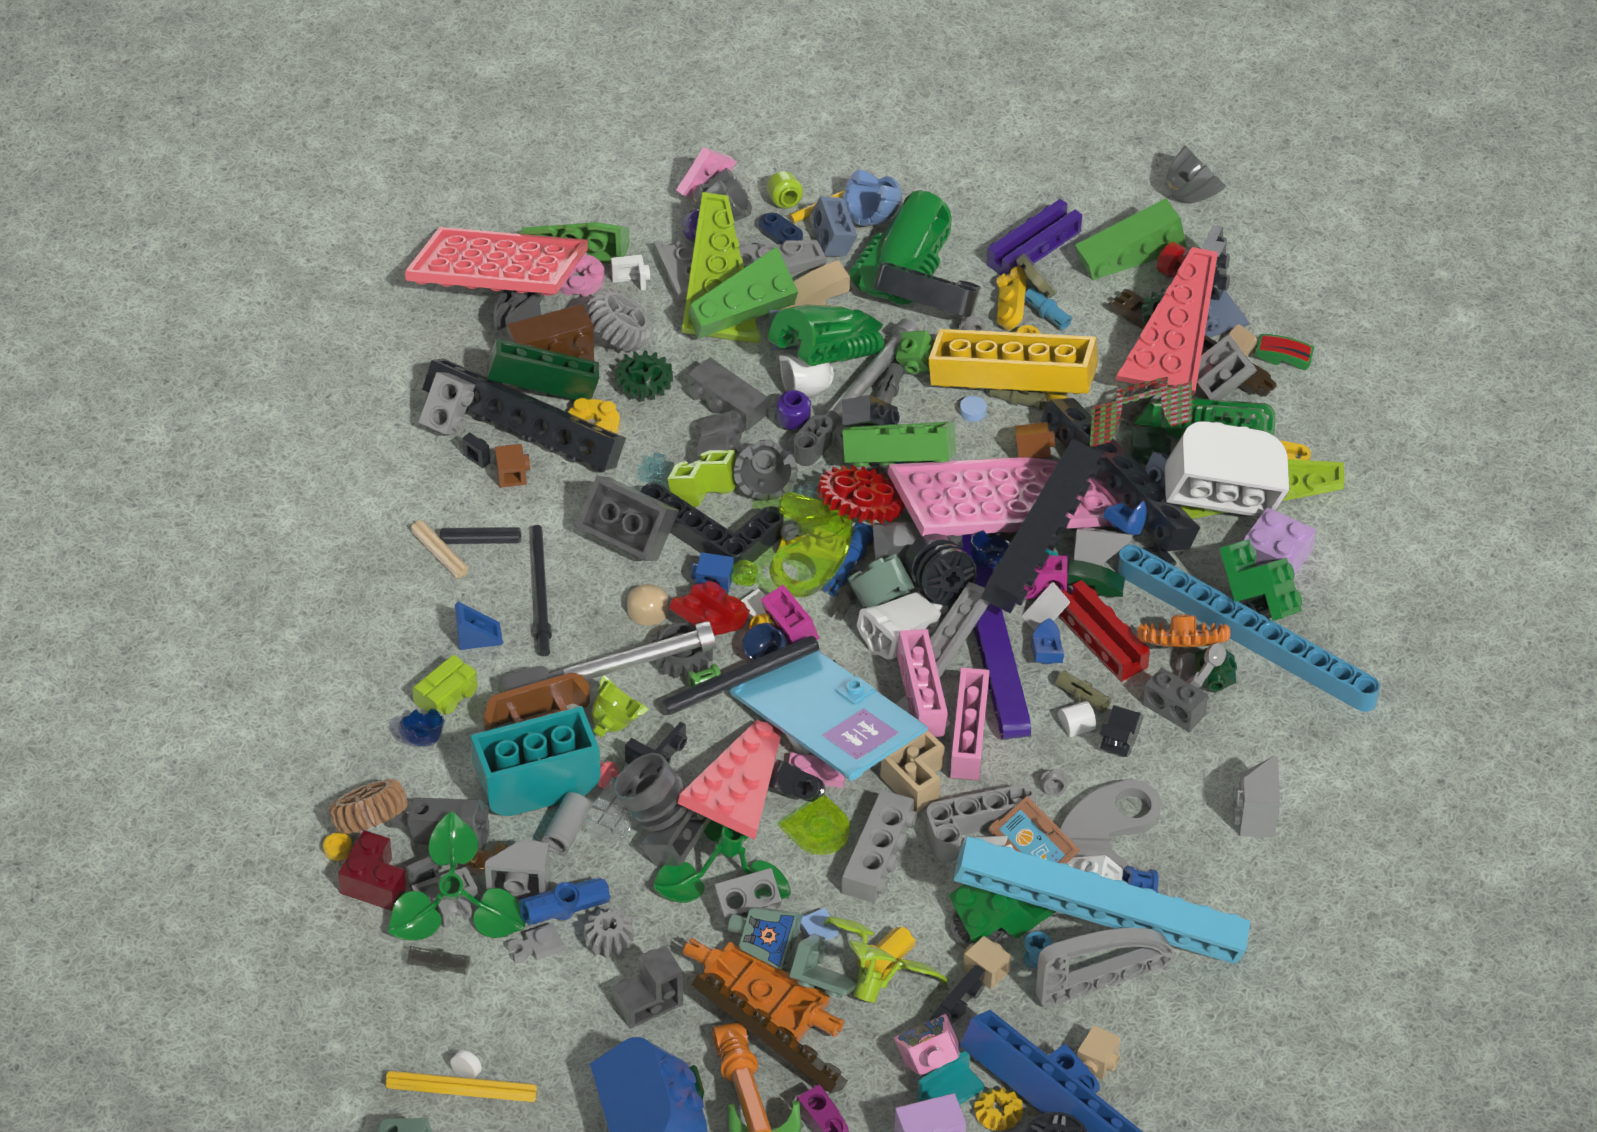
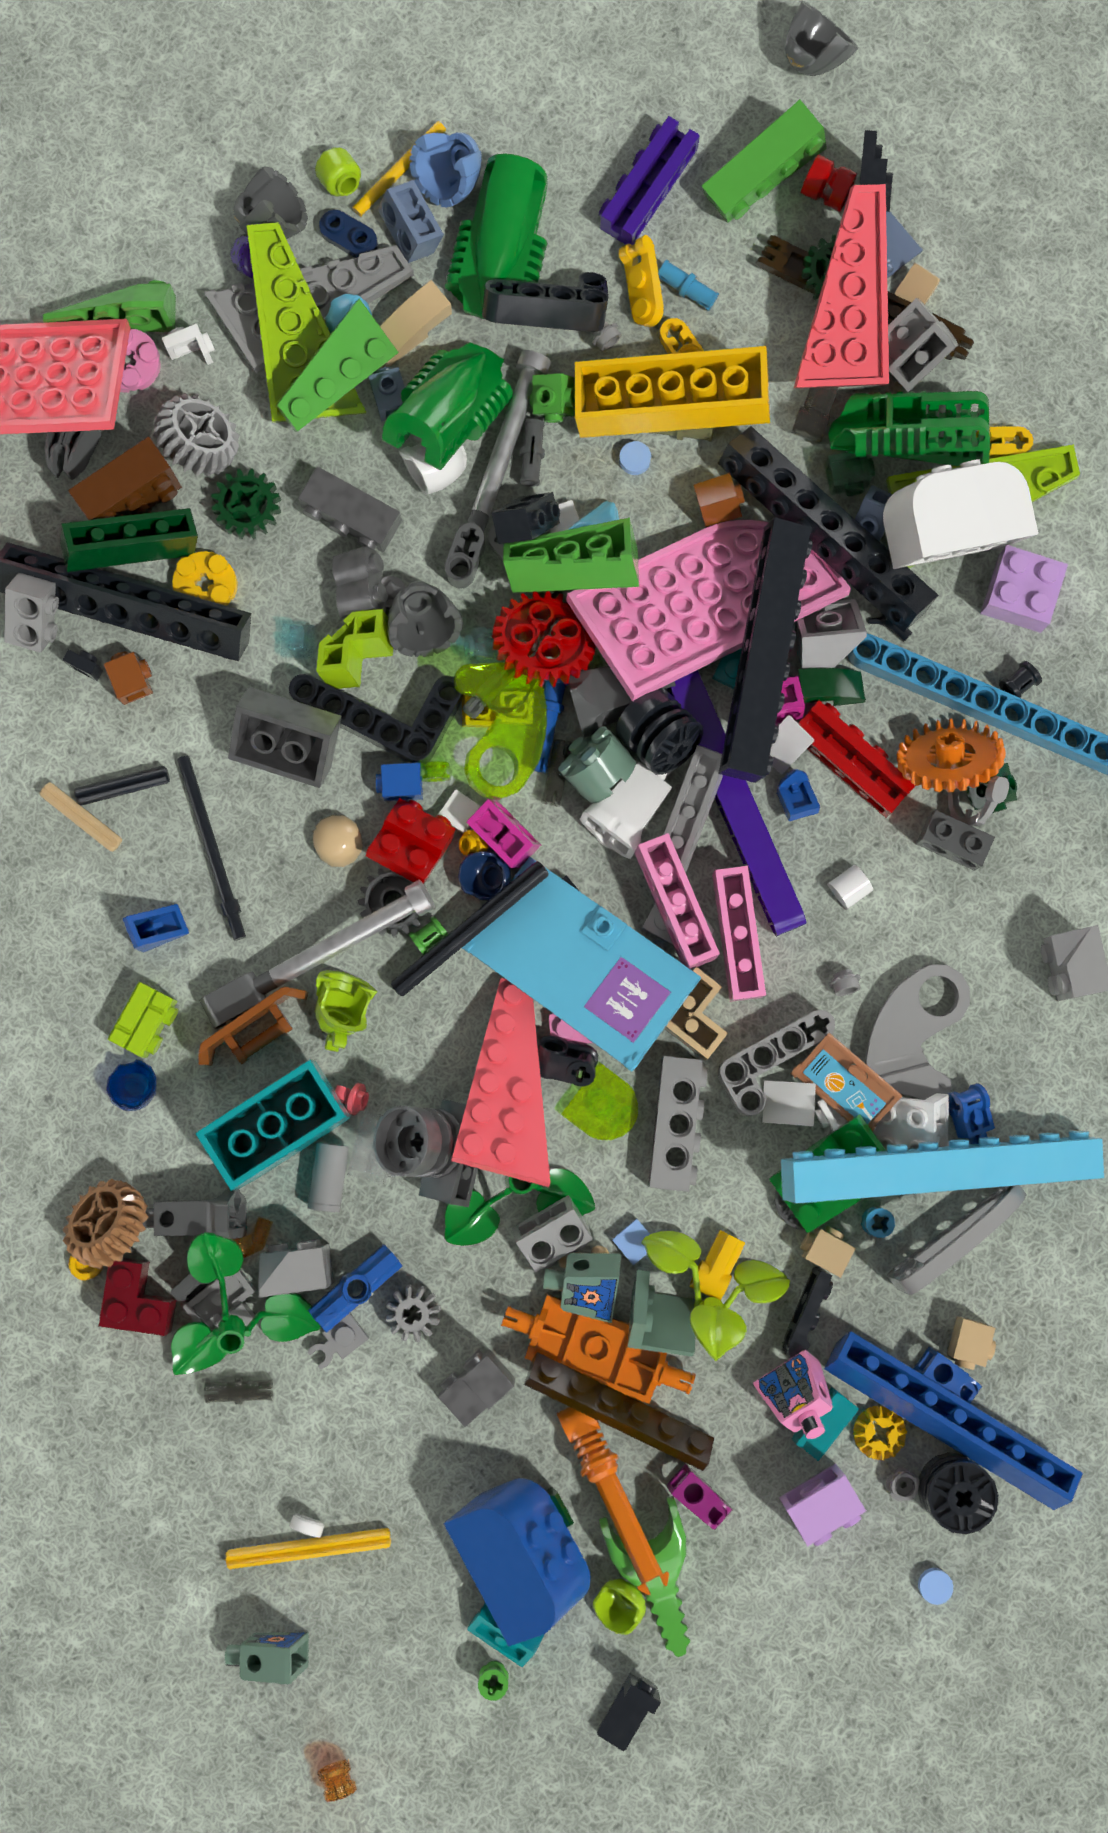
camera: 15 degrees left, 35 degrees up
(673, 742) = (385, 1066): black bracket -> none
(705, 167) = (239, 163): bright pink plate -> none
(793, 409) = (430, 529): dark purple head -> none
(987, 550) = (710, 691): clear blue hair -> none
(1036, 276) = (667, 244): olive tile -> none
(1083, 691) = (849, 848): olive pin -> none
(1121, 731) = (905, 899): black brick -> none
(1125, 518) = (853, 604): blue plate -> none
(1175, 404) = (880, 426): piece -> none
(1270, 578) = (1022, 656): green bracket -> none
(1278, 348) = (971, 284): slope -> none

